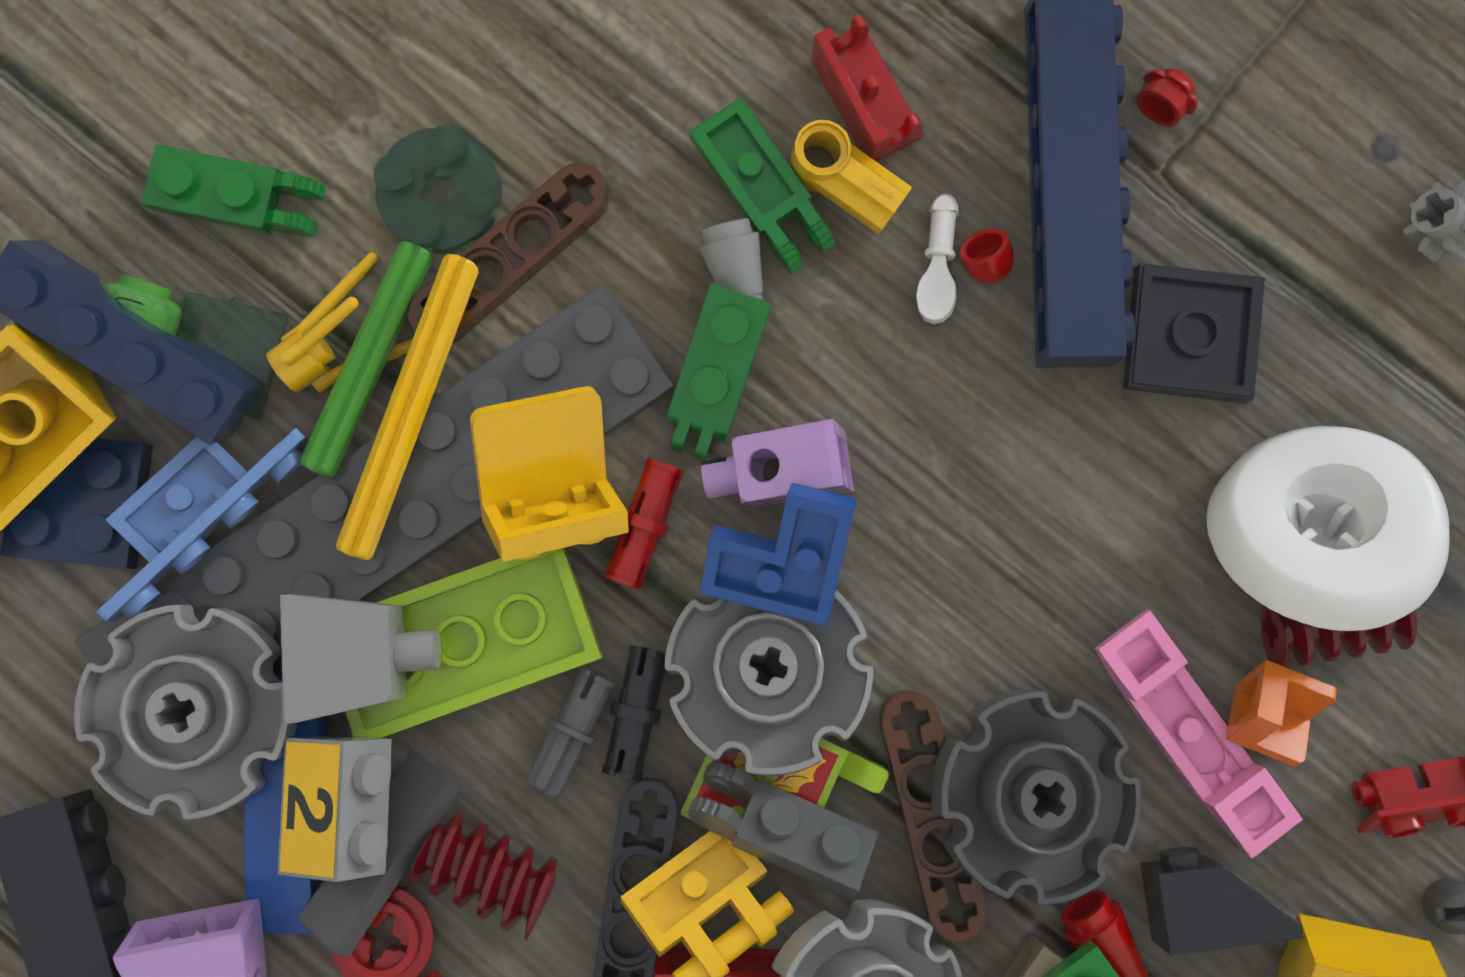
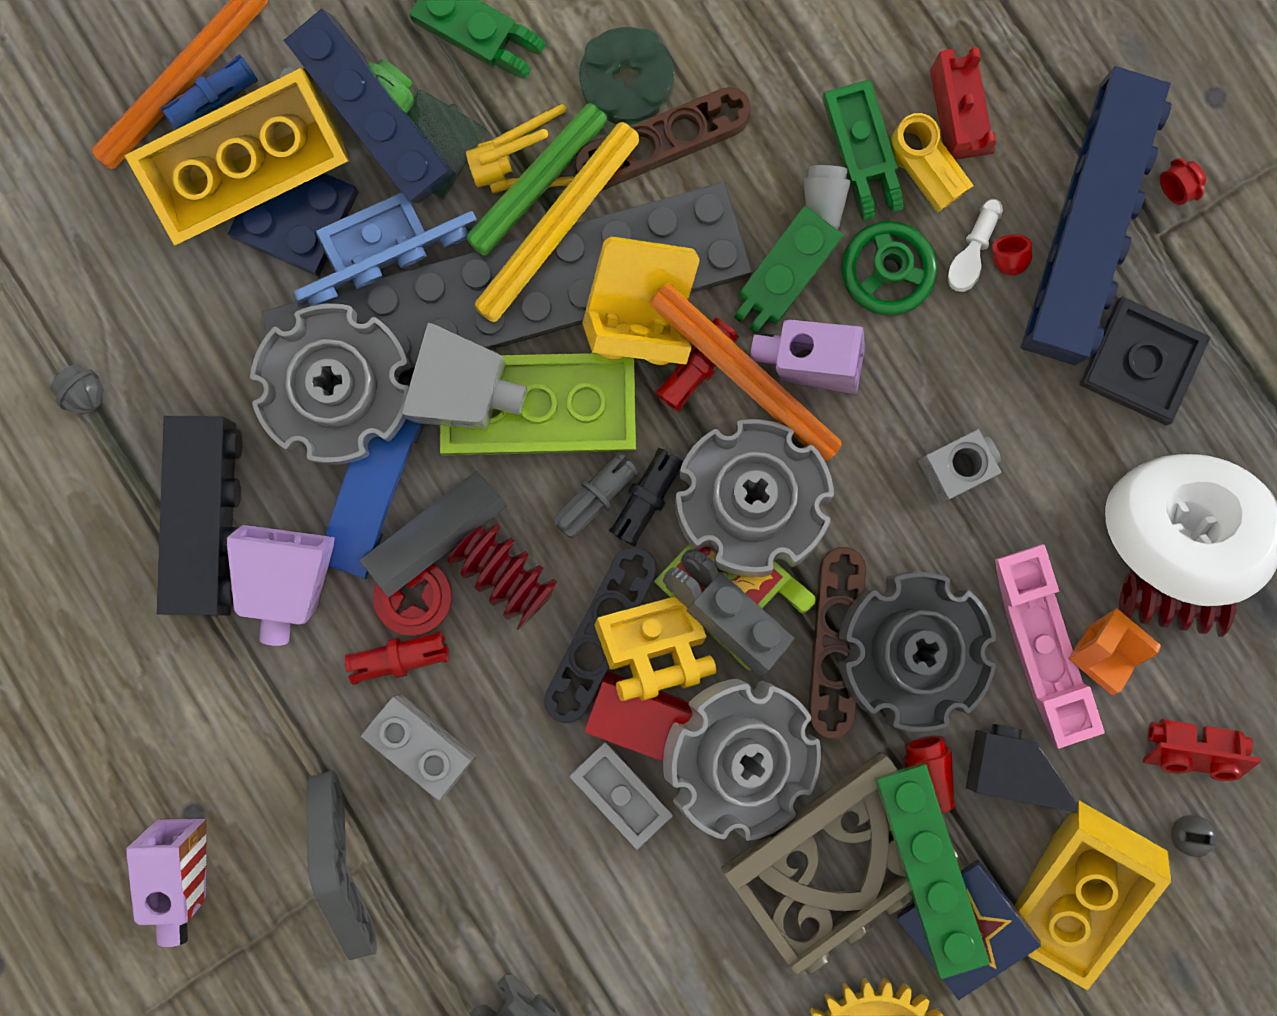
camera: 15 degrees right, 0 degrees up
(334, 807) = (415, 485): brick -> none
(665, 498) = (744, 371): none -> orange axle
(789, 574) = (798, 429): blue plate -> none
(818, 283) = (901, 256): none -> green piece
(987, 555) = (940, 471): none -> light grey brick

